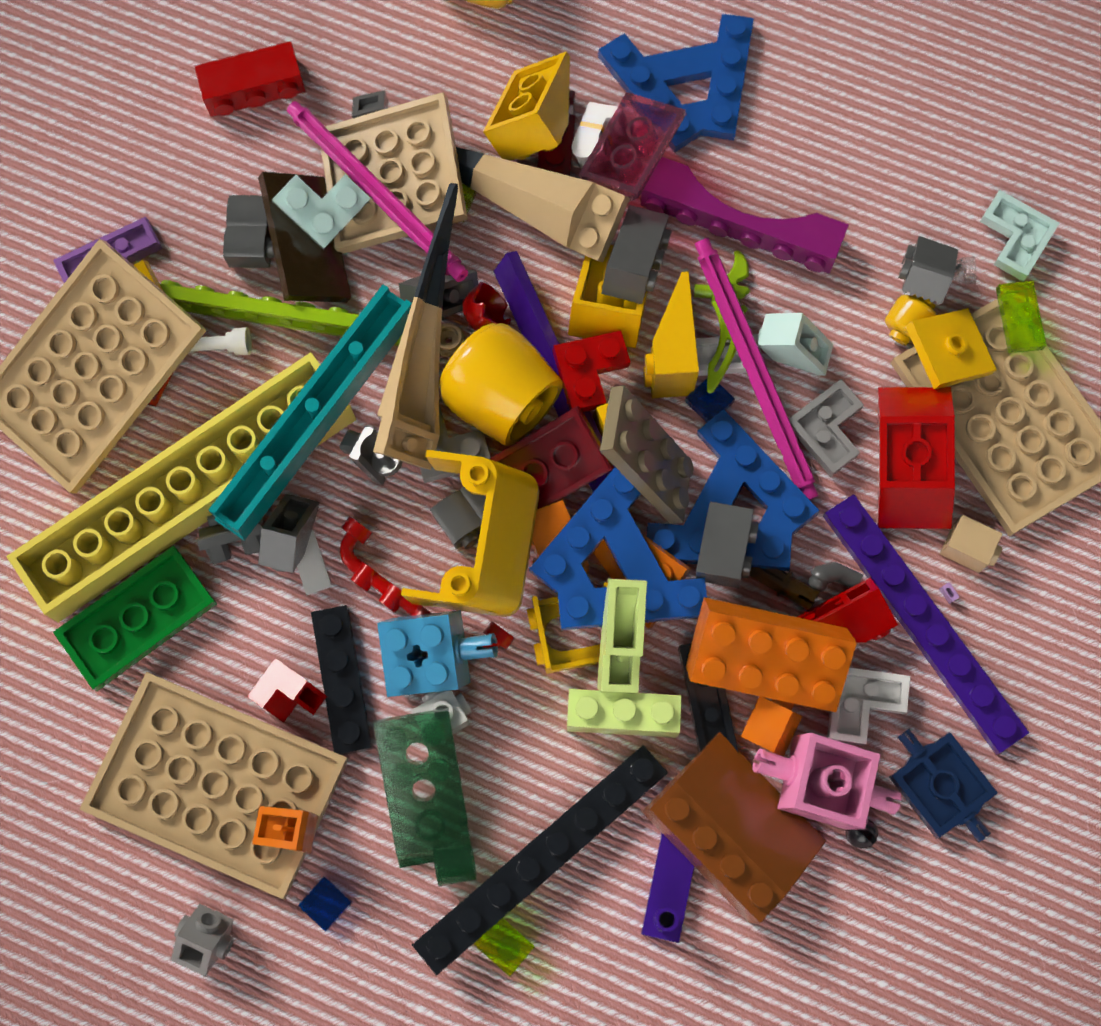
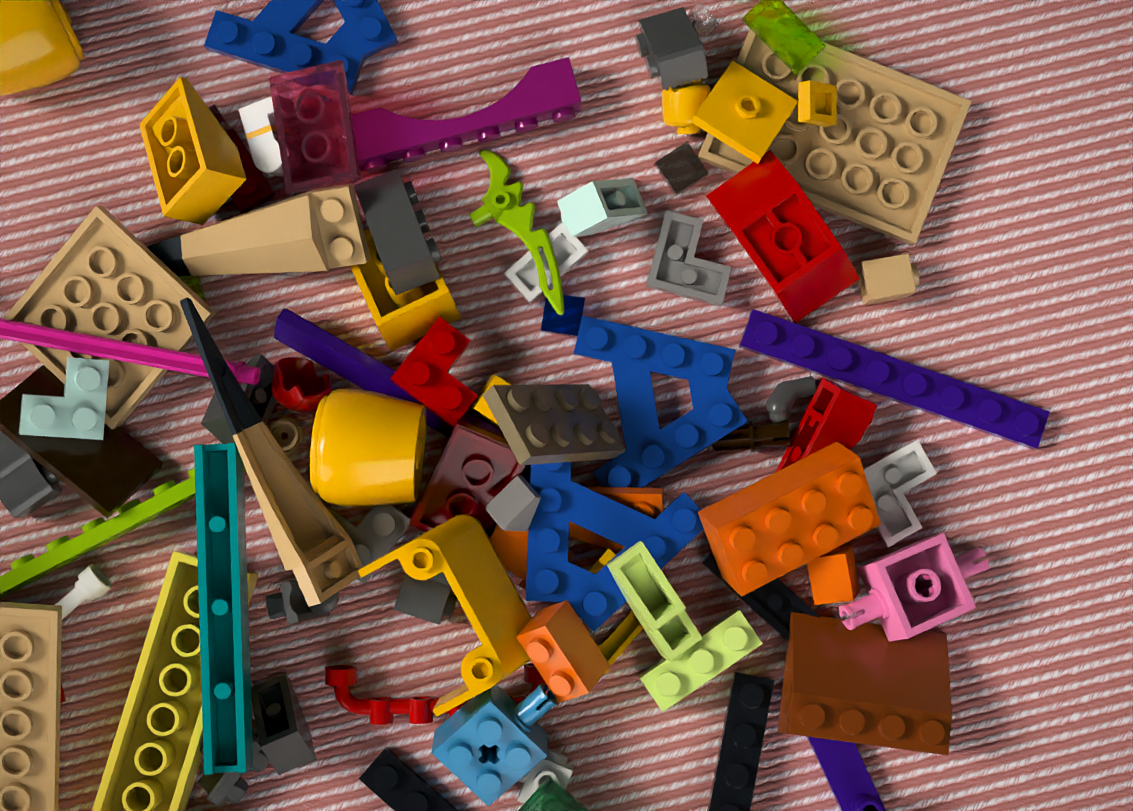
camera: 40 degrees left, 10 degrees up
(312, 568) = (327, 736): white sticker -> none
(369, 103) = (30, 262): dark grey plate -> none
(528, 623) = (563, 651): none -> orange brick
(573, 496) = (514, 505): none -> light grey slope
(673, 359) = (502, 302): yellow slope -> none
(725, 545) = (680, 447): dark grey brick -> none
(756, 368) = (584, 258): dark pink piece -> none
(859, 840) = (976, 613): black hinge -> none
(873, 361) = (681, 169): none -> clear smoke tile
(943, 785) = (1010, 512): dark blue plate -> none
(949, 593) = (896, 336): lavender piece -> none
(1010, 380) = (817, 103): none -> yellow plate

